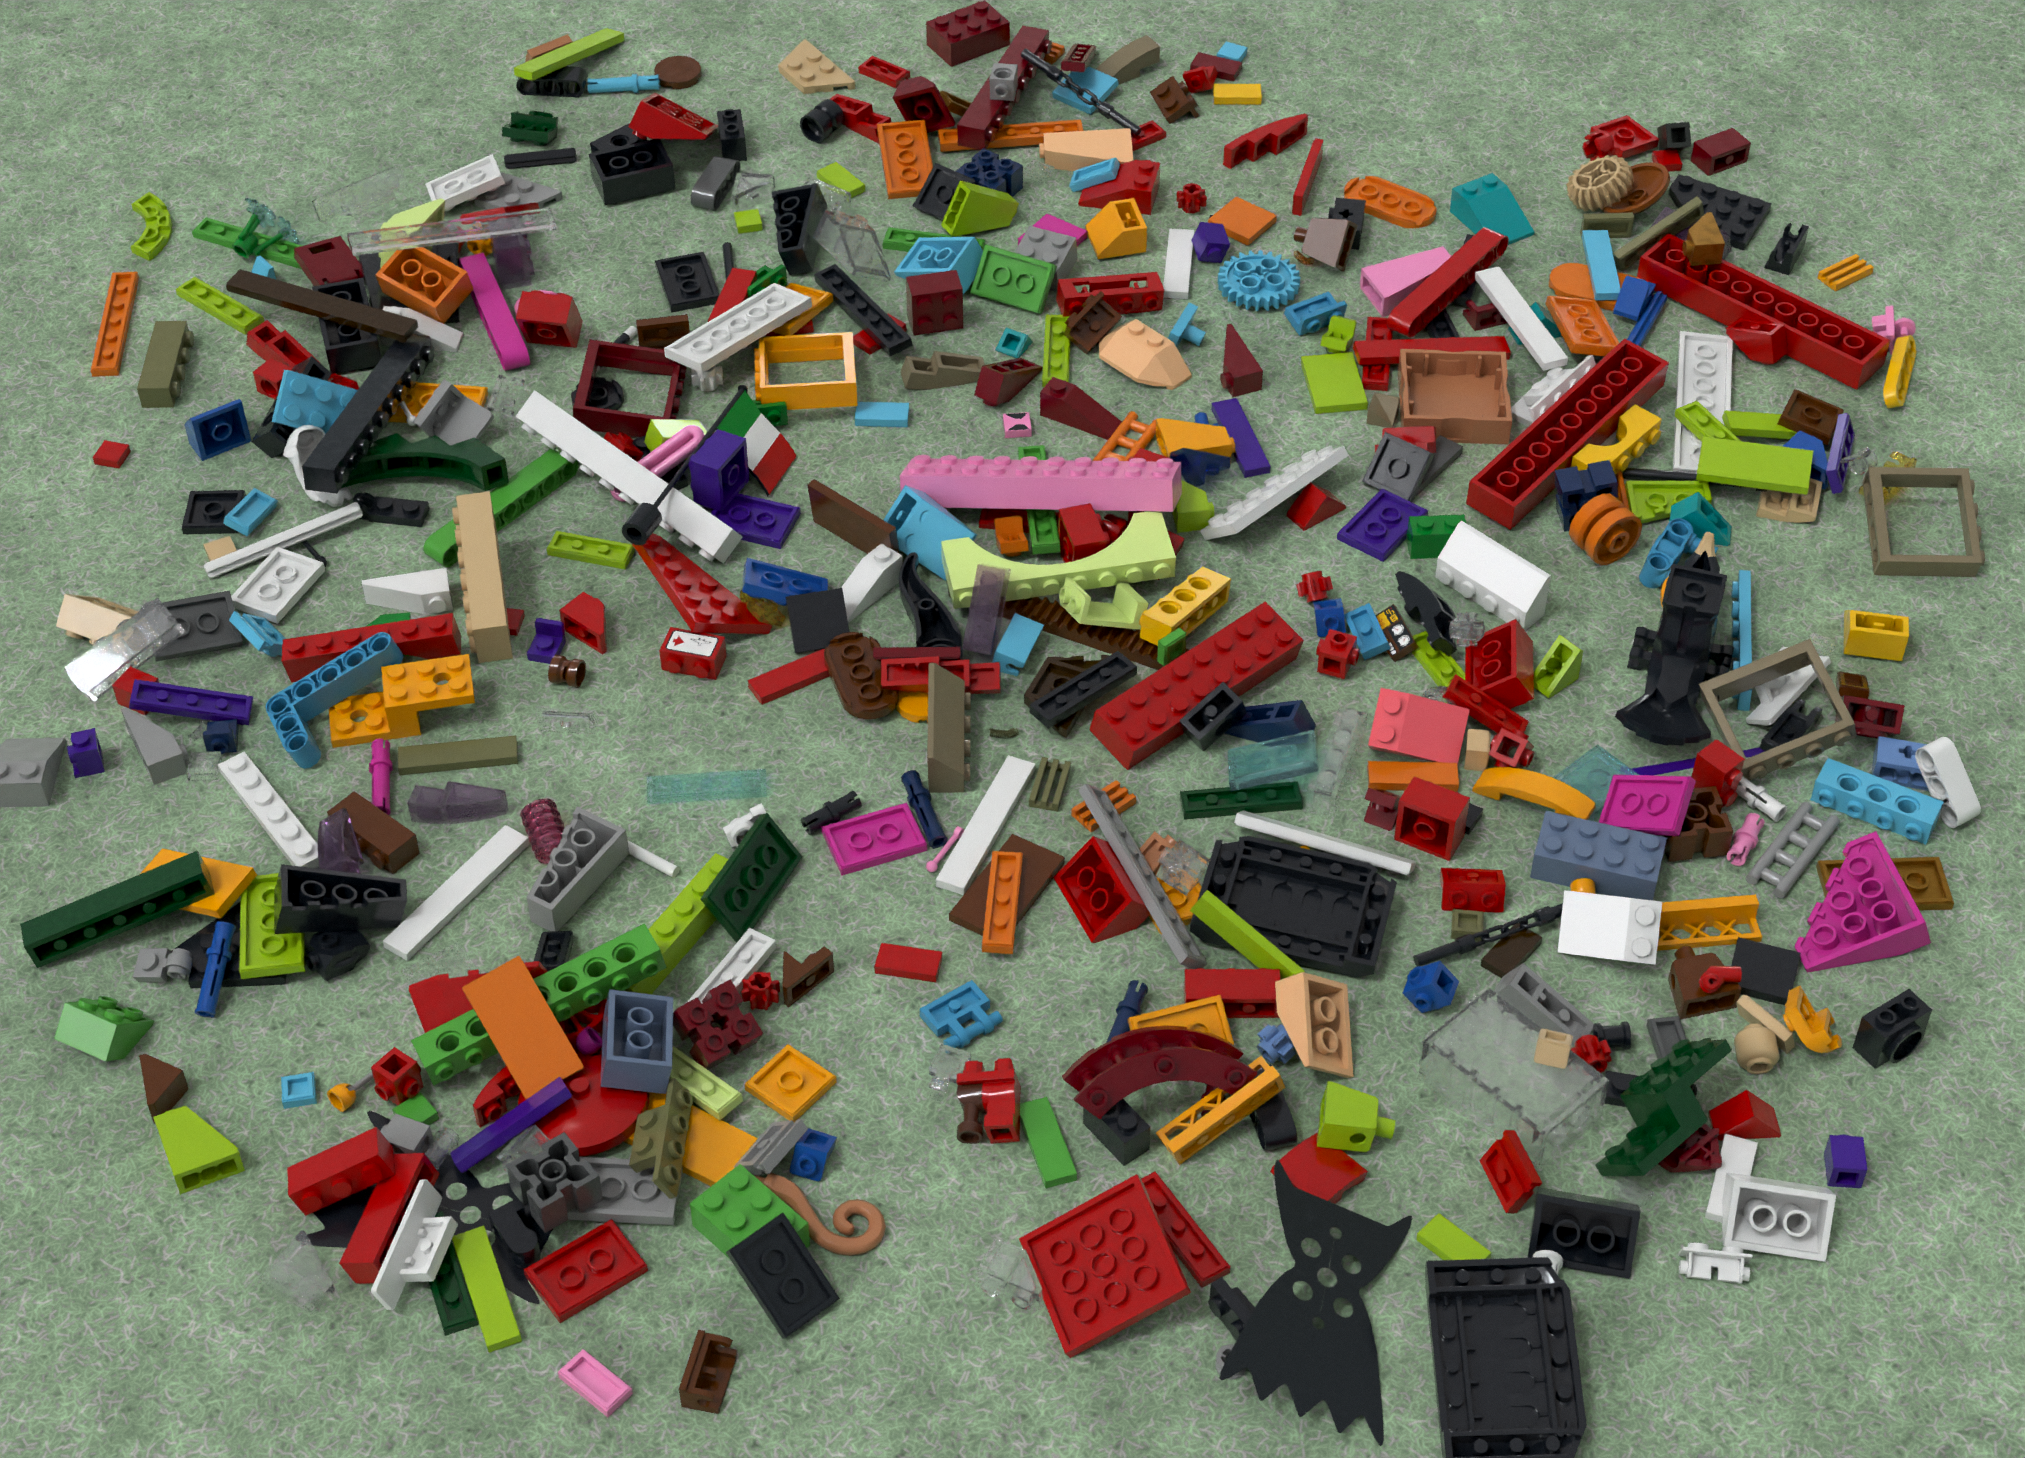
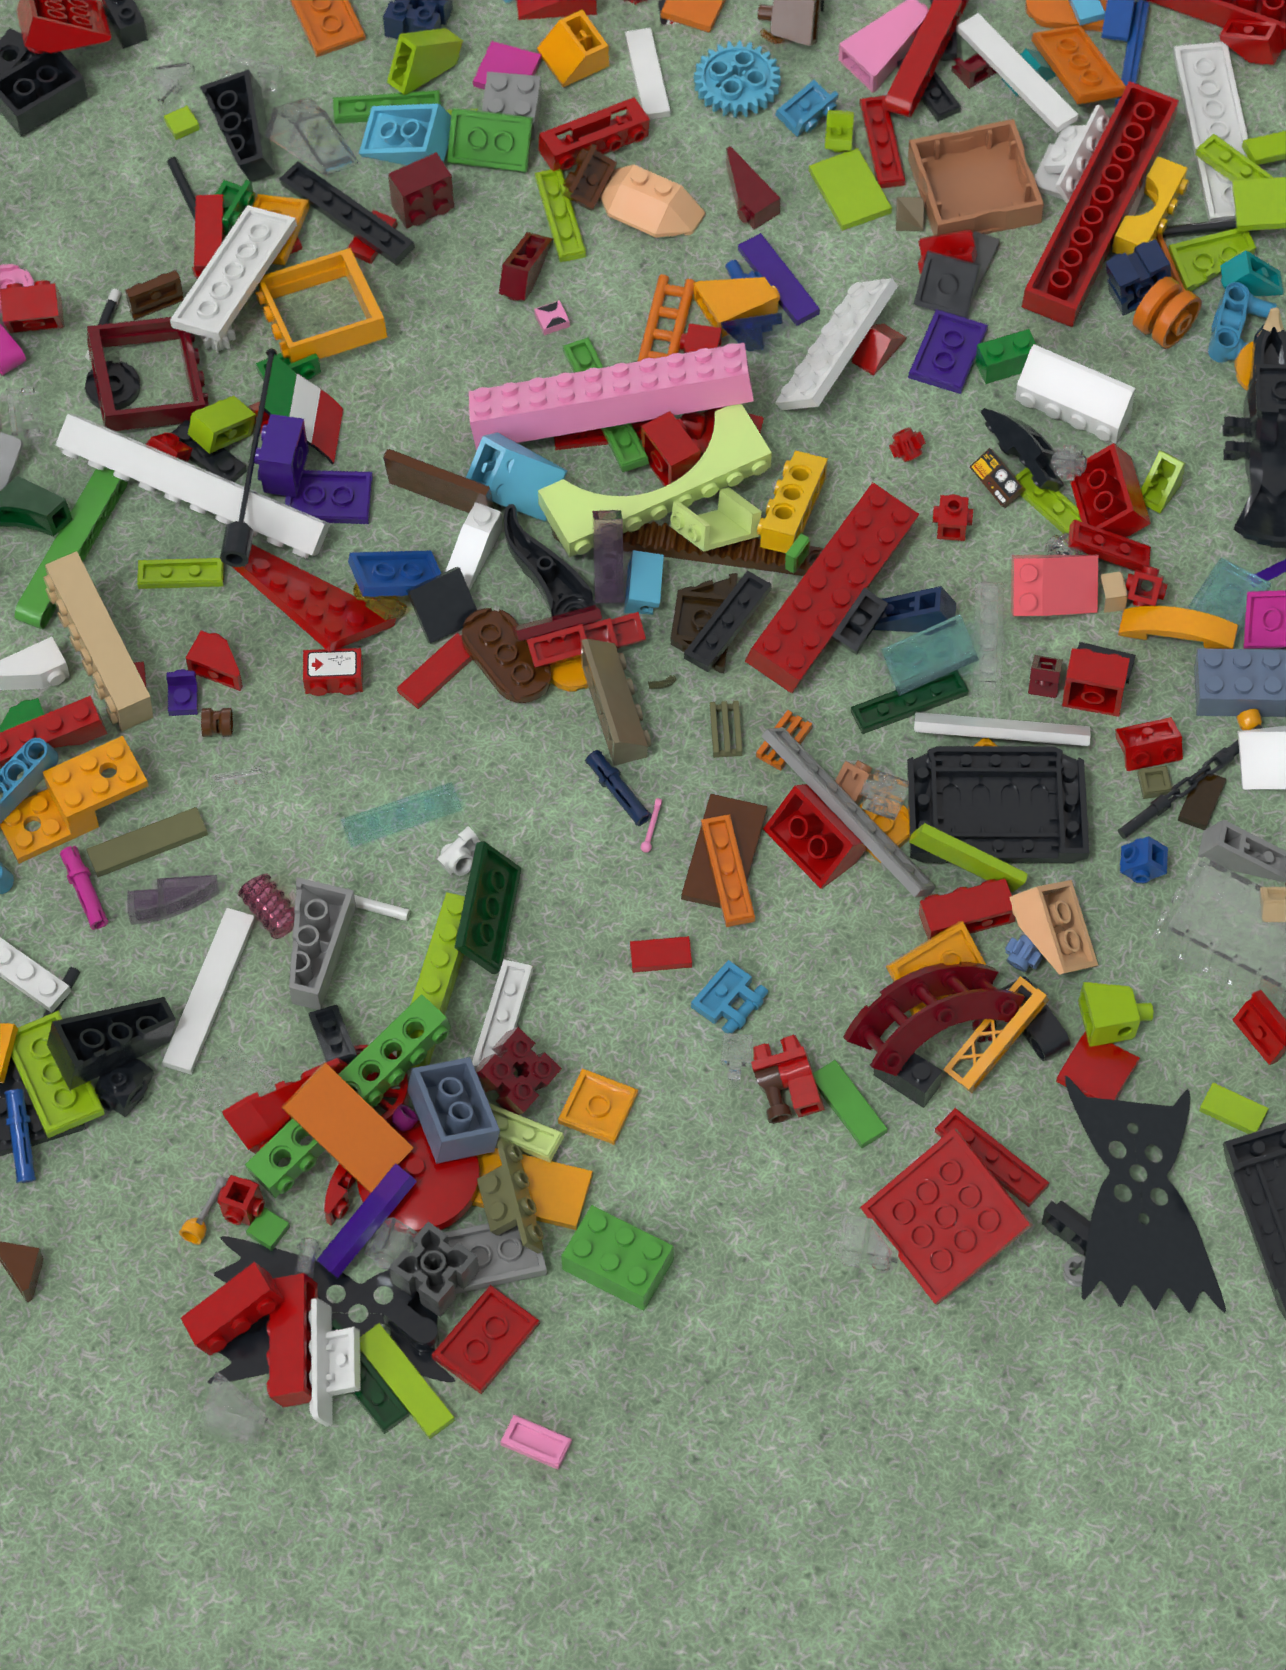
camera: 15 degrees left, 15 degrees up
(196, 1149) = (81, 1320): lime slope -> none
(298, 1090) = (148, 1234): medium azure tile -> none
(338, 844) = (82, 978): clear purple slope -> none
(378, 834) = (103, 950): reddish brown brick -> none
(407, 1135) = (275, 1257): light grey brick -> none
(670, 453) = (226, 445): bright pink piece -> none
(687, 281) = (148, 216): black tile -> none
(707, 1372) = (633, 1406): reddish brown hinge -> none
(715, 183) = (129, 81): dark grey beam -> none
(760, 990) = (538, 1021): red gear -> none
(772, 1146) = (609, 1178): light grey plate -> none
(782, 1275) = (667, 1300): black tile -> none
(801, 978) = (569, 998): reddish brown slope -> none
(812, 1154) = (646, 1172): blue bracket -> none
(831, 812) = (532, 814): black pin -> none
(837, 1244) = (651, 1224): nougat plant -> none
(839, 177) = (259, 45): lime tile -> none
(874, 839) = (581, 831): dark pink tile -> none
(882, 414) = (412, 337): medium azure tile -> none
(939, 191) = (376, 41): black tile -> none
(940, 371) = (455, 270): dark tan slope -> none
(985, 825) = (681, 789): white tile -> none
(1010, 536) = (593, 457): orange bracket -> none
(1013, 343) = (513, 217): teal slope -> none
(1075, 408) = (607, 286): dark red slope -> none
(1128, 1008) = (879, 955): dark blue pin -> none
(1185, 330) = (681, 160): medium azure tile -> none
(1192, 509) = (765, 380): lime slope -> none
(1210, 242) = (674, 43): dark purple brick -> none
(1329, 615) = (930, 473): blue bracket -> none
(1368, 631) = (971, 483): dark azure plate -> none
(1388, 351) = (956, 119): red tile -> none
(1397, 775) = (1060, 633): orange tile -> none

